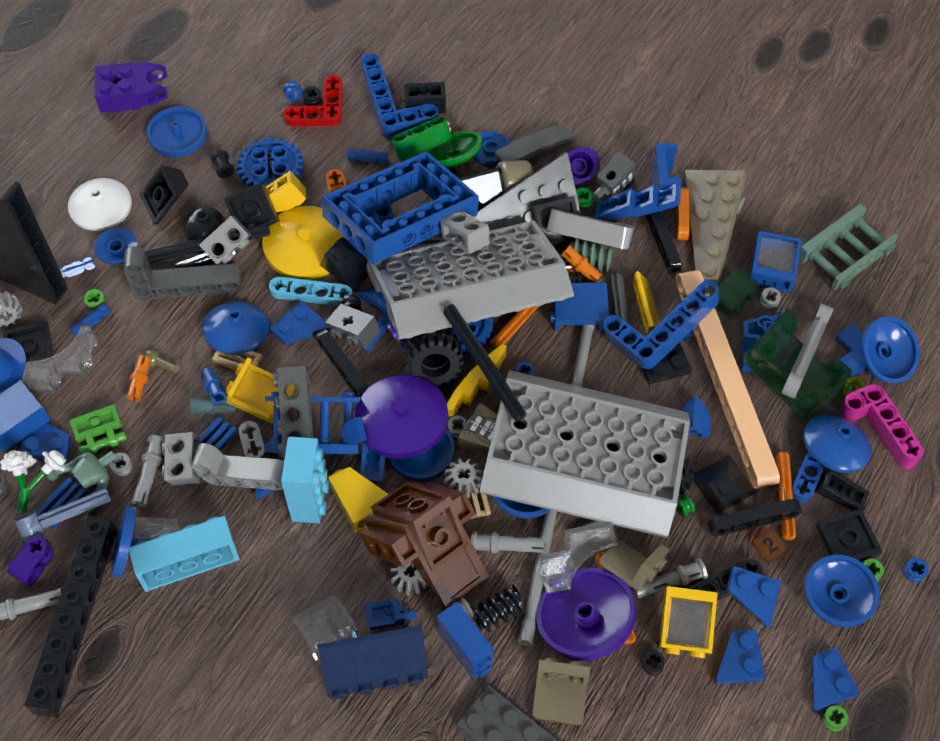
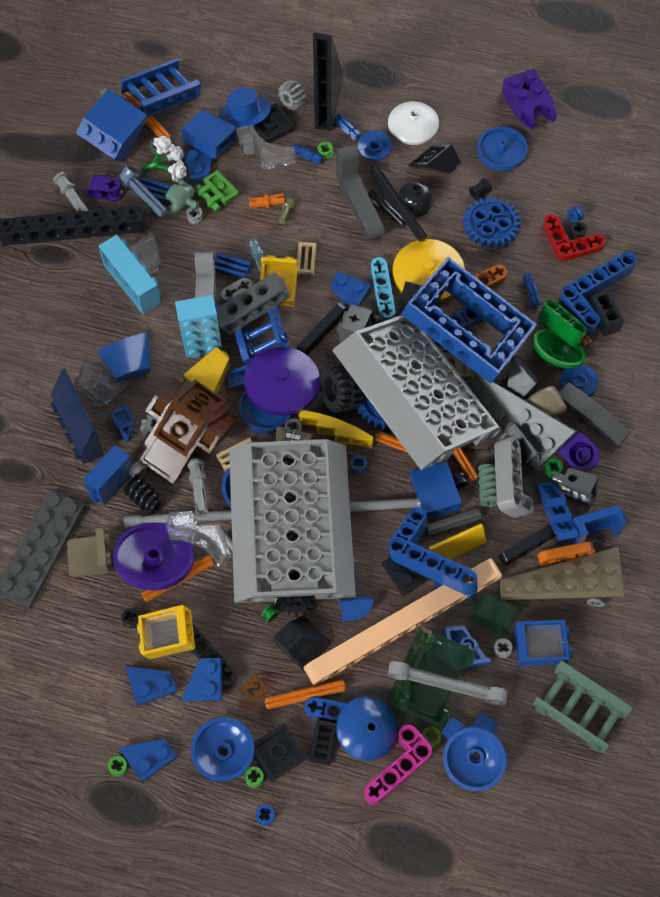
camera: 75 degrees right, 5 degrees up
(124, 541) = (128, 231): blue piece -> none
(151, 461) = (201, 232): light grey pin -> none
(184, 458) = (206, 243): light grey brick -> none
(213, 385) = (273, 248): blue pin -> none
(222, 236) = (398, 211): light grey brick -> none
(235, 327) = (328, 255): blue dish -> none
(252, 206) = (437, 220): black plate -> none
(286, 192) = (459, 235): yellow slope -> none
(300, 587) = (127, 356): none -> blue slope
(353, 431) = (255, 350): blue tile -> none
(464, 471) = (241, 434): light grey gear -> none
(465, 231) = (459, 372): light grey brick -> none
(485, 363) = (329, 415): black axle -> none
(581, 264) = (473, 478): orange pin -> none
(633, 566) = (204, 581): dark tan bracket -> none
(680, 576) = (207, 622): light grey pin -> none
(754, 517) = (272, 669): black beam -> none

